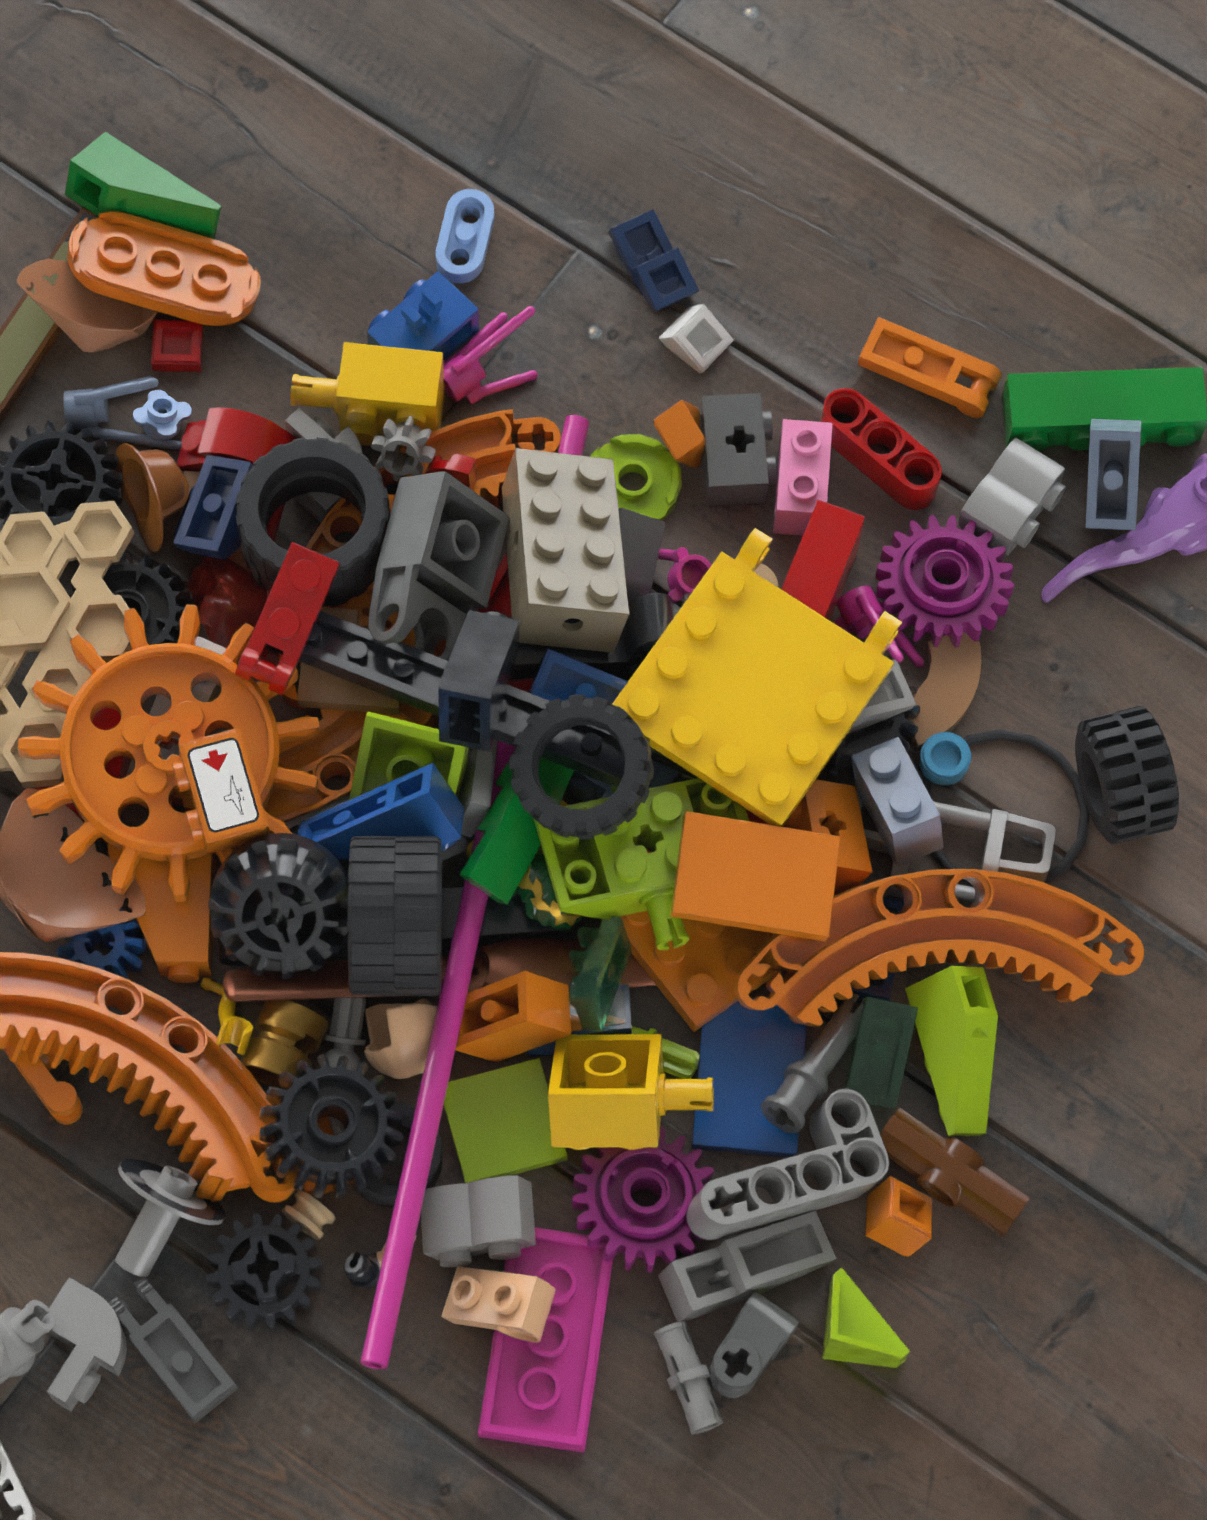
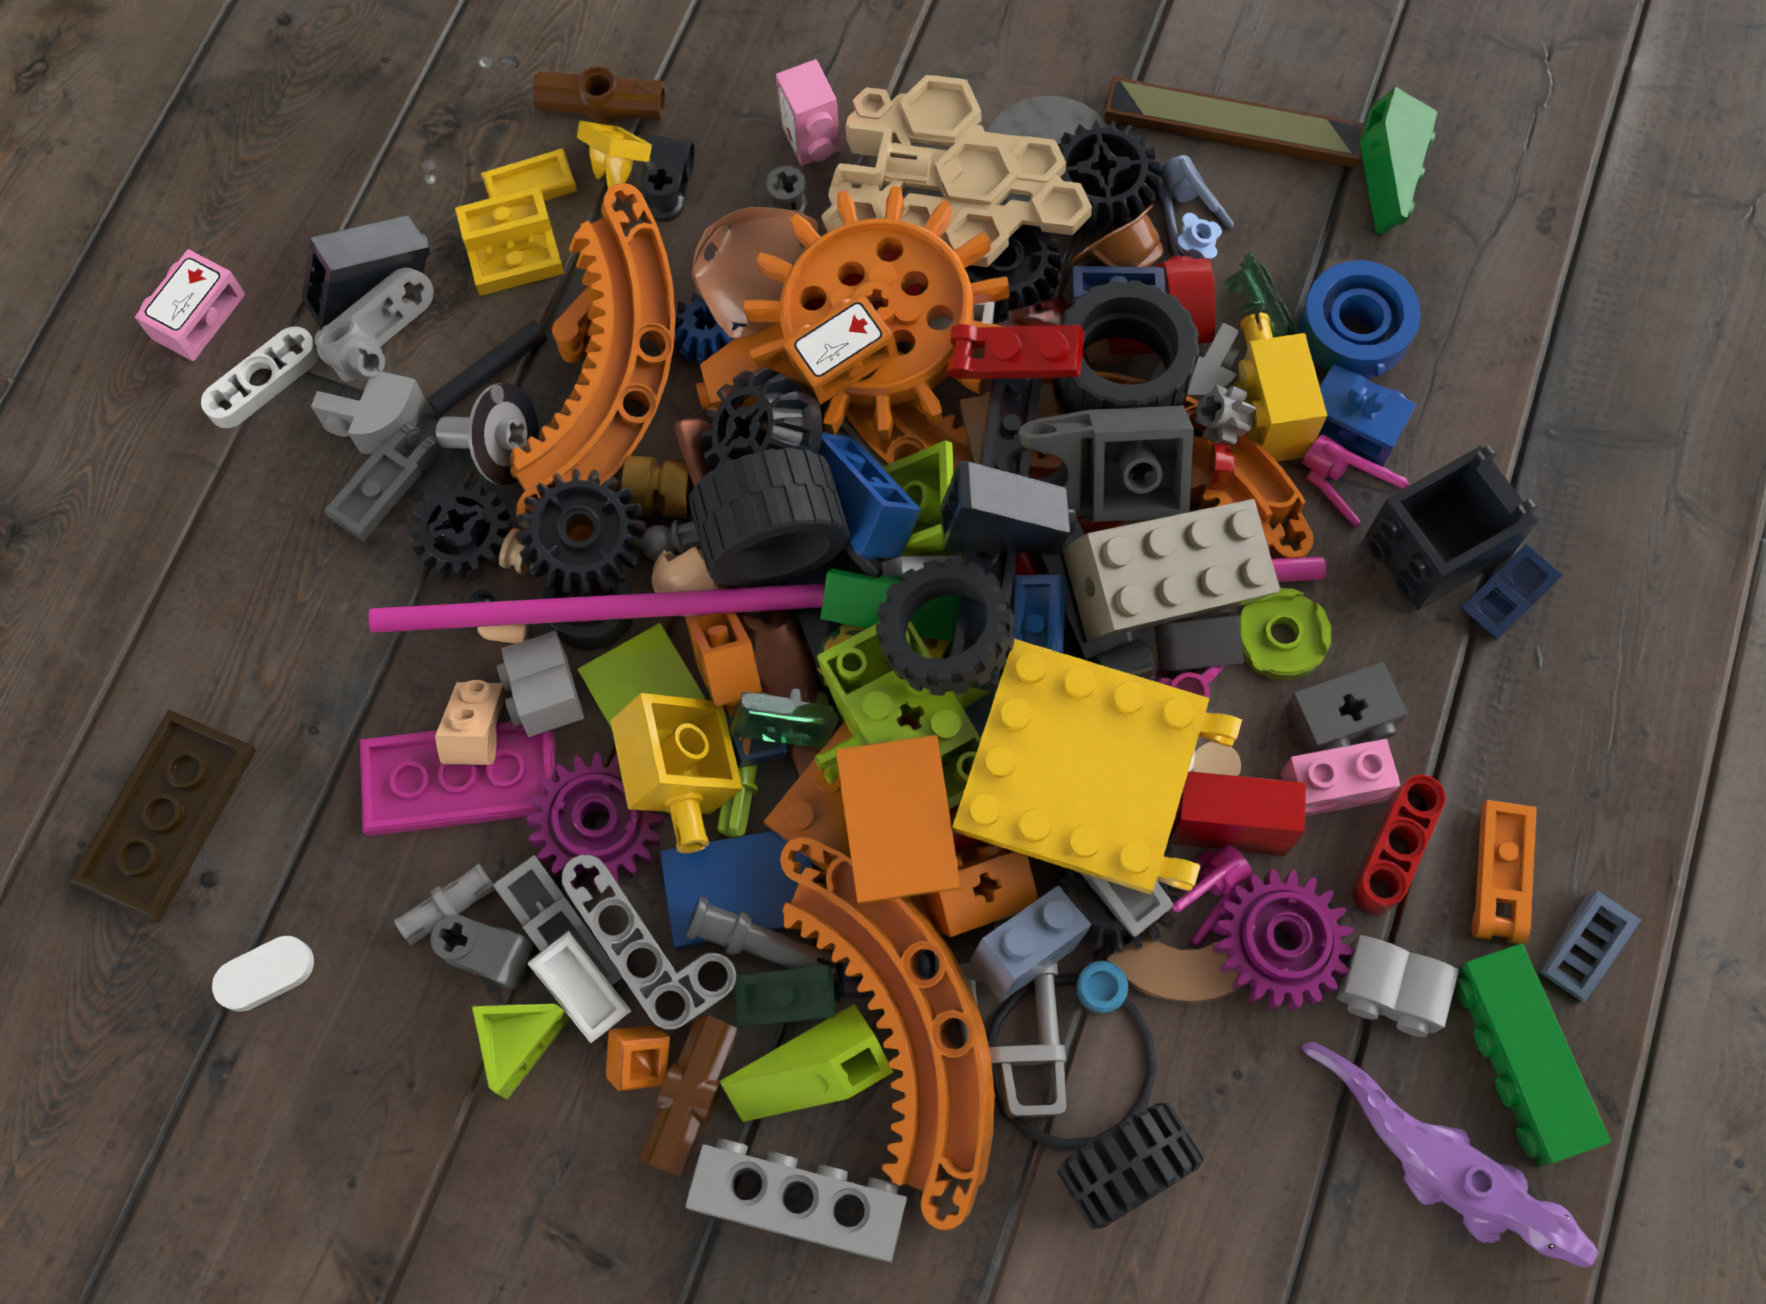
camera: 80 degrees right, 0 degrees up
(62, 1206) = (486, 368): none -> black piece
(84, 316) = (1277, 150): nougat piece -> none
(163, 269) = (1330, 192): orange tile -> none
(177, 346) = (1269, 233): red tile -> none
(233, 1029) = (656, 438): yellow piece -> none
(251, 371) = (1262, 293): none -> clear green plate
(323, 259) = (1369, 294): none -> blue piece
(464, 238) = (1463, 425): light blue plate -> none
(582, 288) = (1450, 527): none -> black container
(682, 433) = (1342, 655): orange slope -> none
(696, 337) = (1449, 652): white slope -> none
(817, 1251) = (579, 986): none -> white tile
(1018, 299) = (1624, 923): none -> sand blue slope
(1113, 474) = (1453, 1075): sand blue brick -> none
(1126, 1029) = (715, 1196): none -> light grey brick

